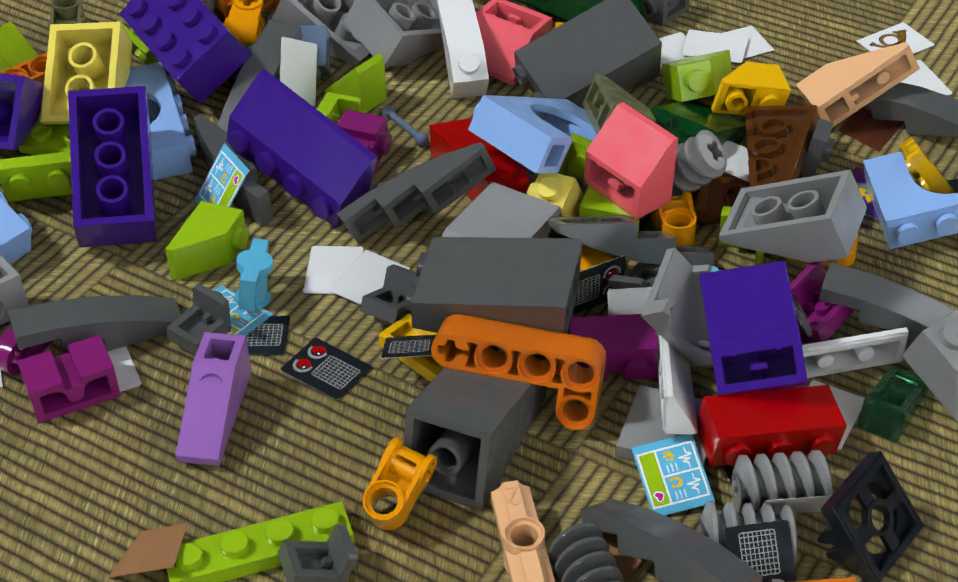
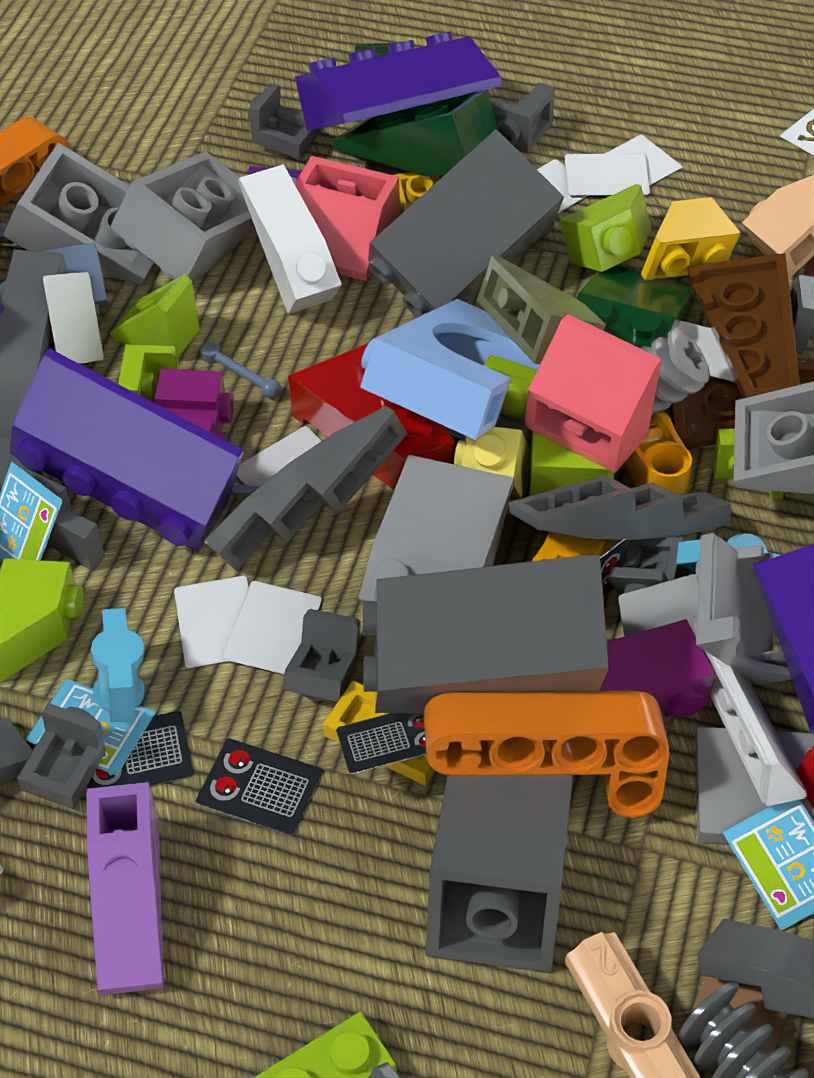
camera: 15 degrees left, 10 degrees up
(399, 475) = (439, 970): light orange piece -> none

